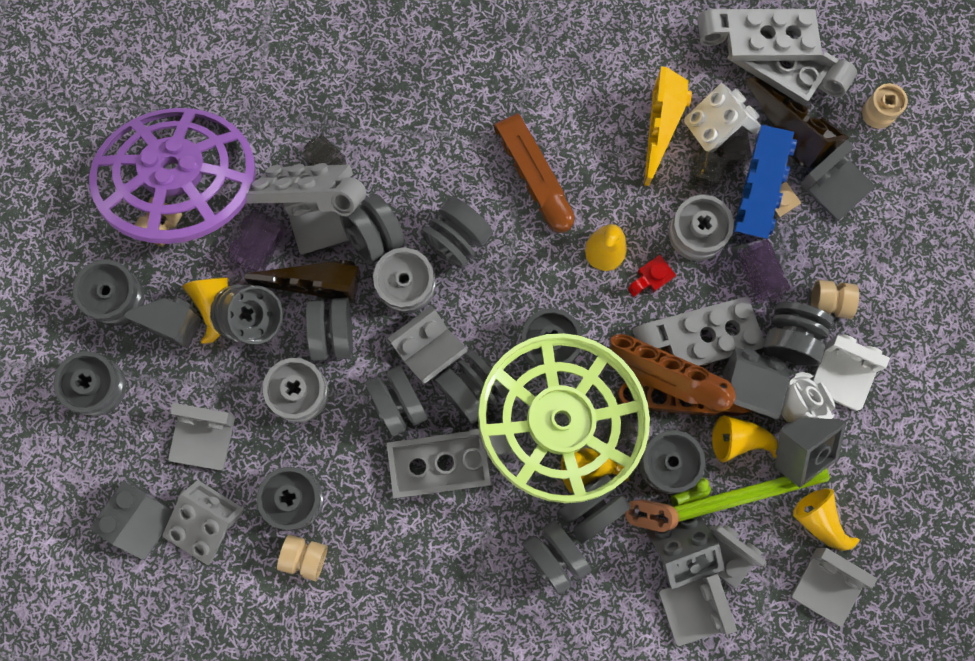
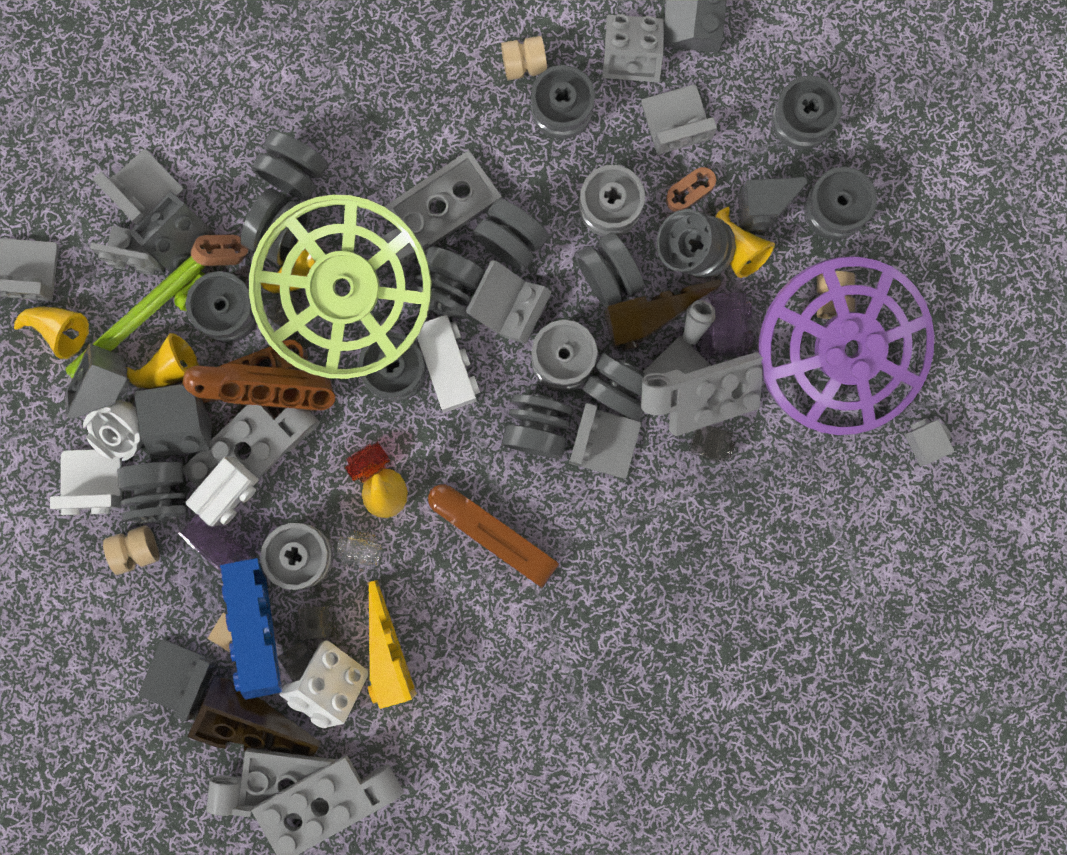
camera: 155 degrees right, 5 degrees up
(152, 75) = (929, 441): none -> light grey brick
(224, 378) = (686, 185): none -> nougat beam
(279, 253) = (698, 319): none -> light grey cone
(411, 199) = (605, 442): none -> light grey bracket
(504, 322) = (447, 364): none -> white brick
(608, 277) = (367, 462): none -> clear red brick
(648, 211) = (359, 550): none -> clear head
(653, 275) = (322, 488): red plate -> none
(739, 304) = (222, 492): none -> white brick
(884, 106) = (162, 787): tan wheel -> none

